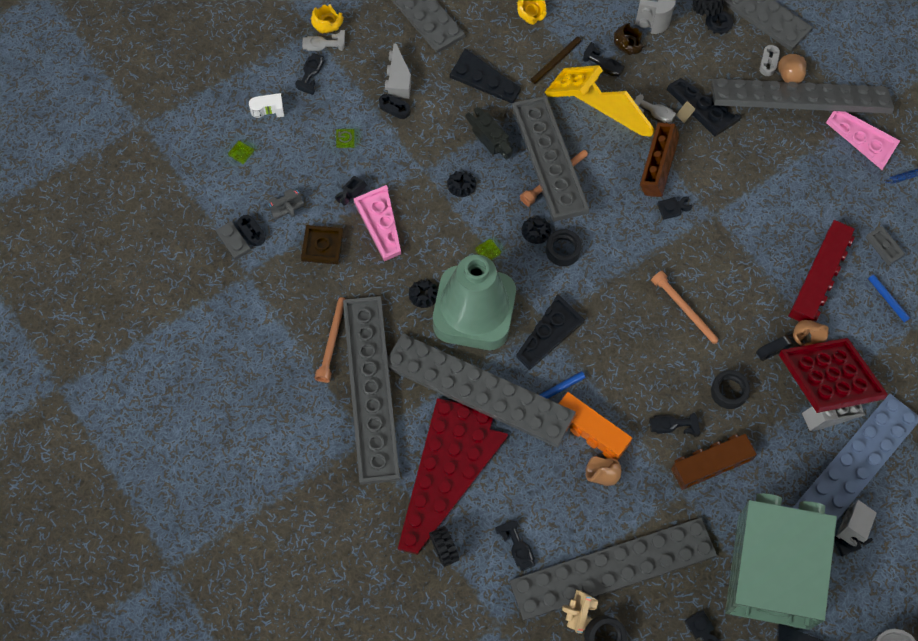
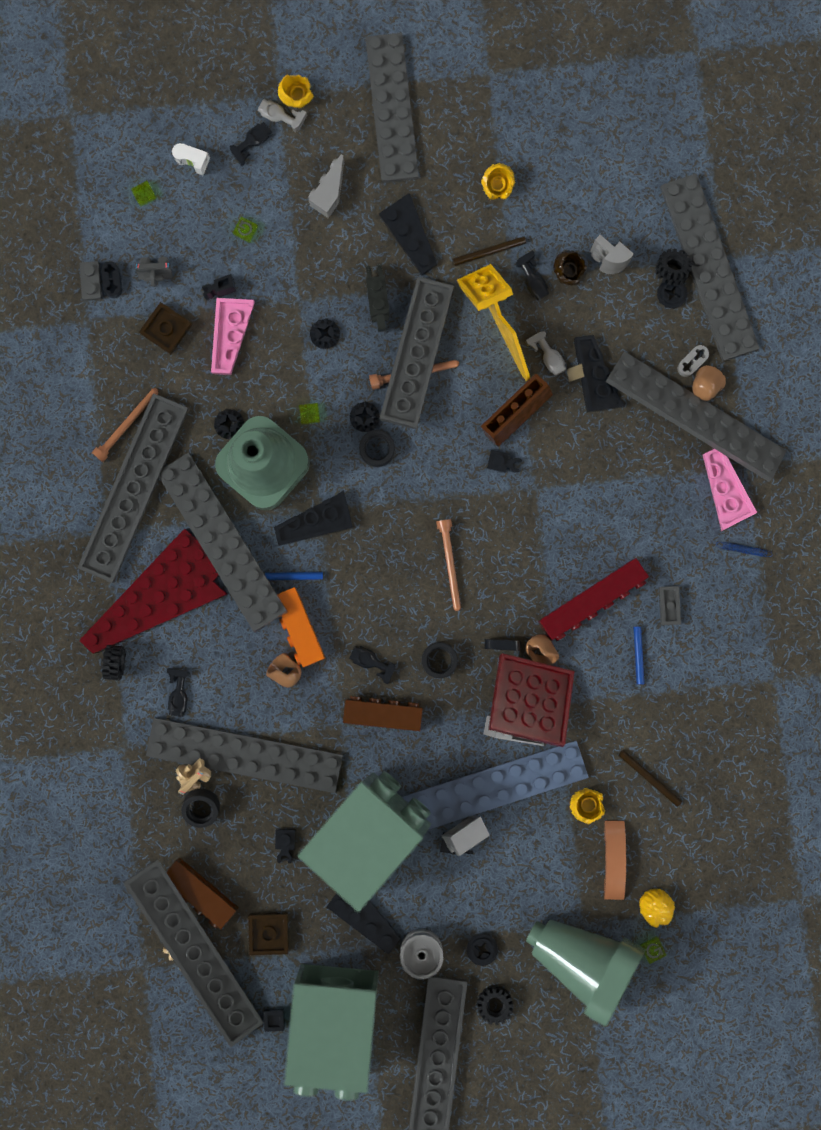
camera: 35 degrees right, 20 degrees up
(394, 106) = (311, 218): black beam -> none

